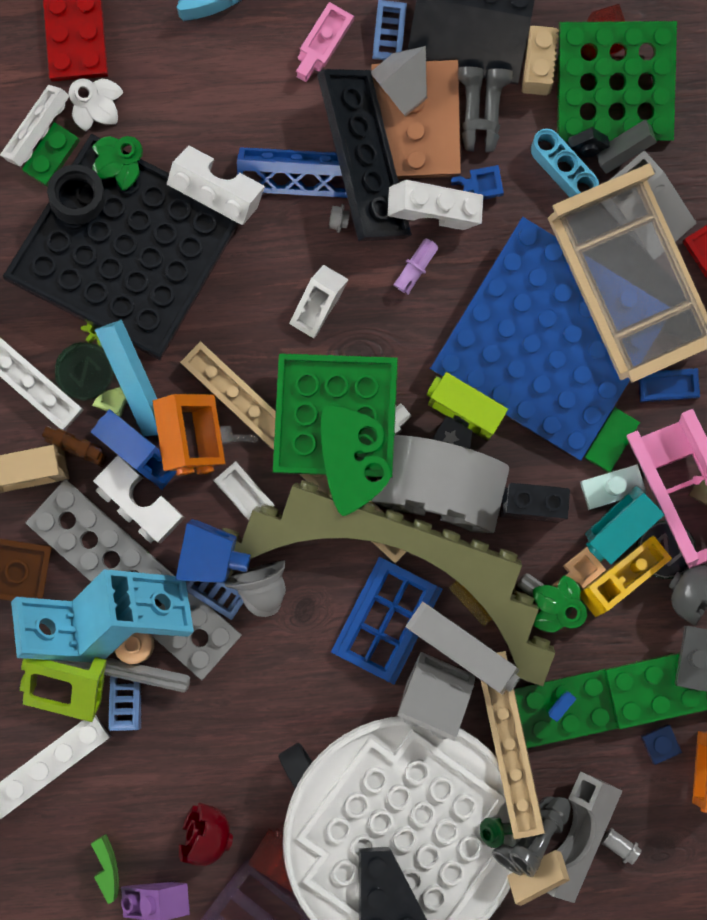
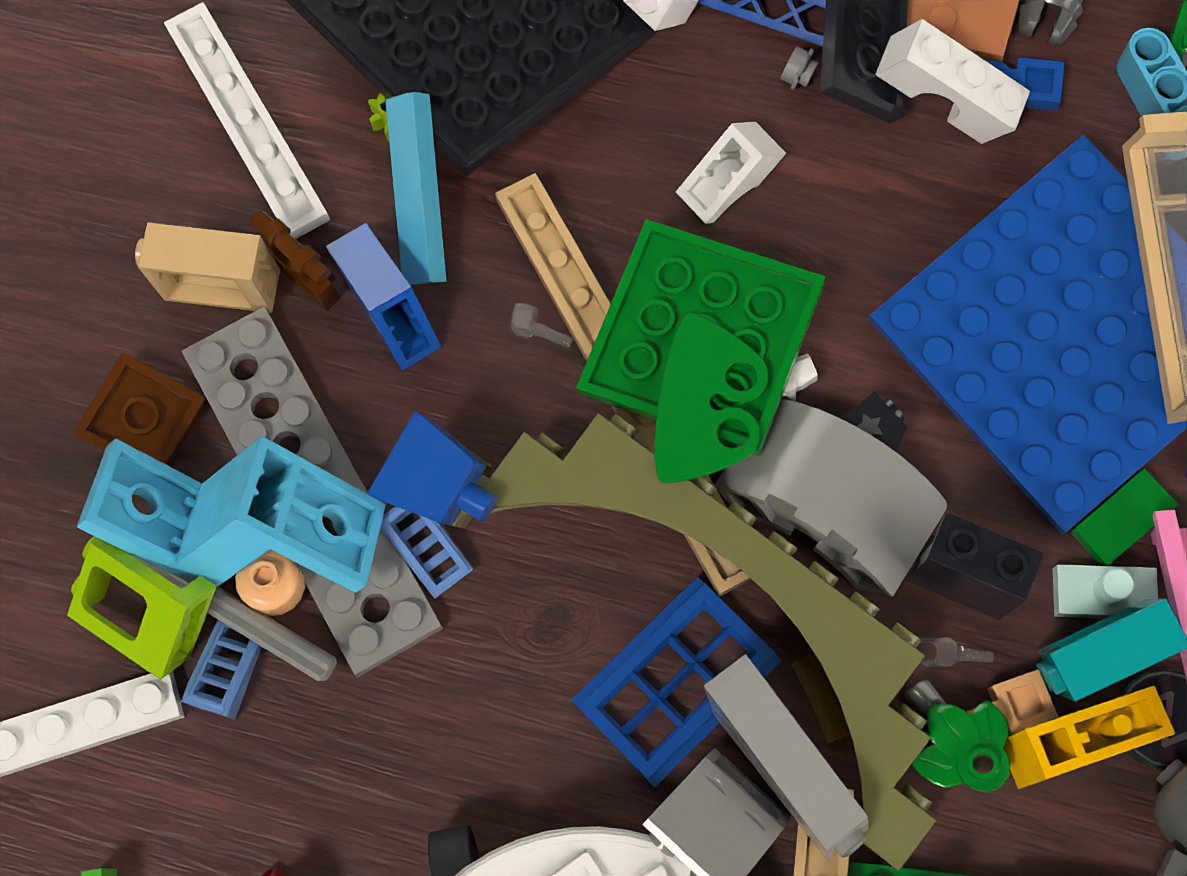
camera: 25 degrees right, 10 degrees down
(83, 371) = (350, 167): clear green tile -> none
(112, 399) = (378, 217): yellowish green tile -> none
(118, 483) = (342, 337): white arch -> none
(173, 436) = (448, 251): orange window -> none
(241, 489) = (519, 404): white tile -> none
(260, 588) = (496, 564): light grey piece -> none
(416, 266) = (893, 168): lavender axle -> none
(457, 398) = (914, 380): lime window -> none
(535, 553) = (949, 653): none -> clear hand

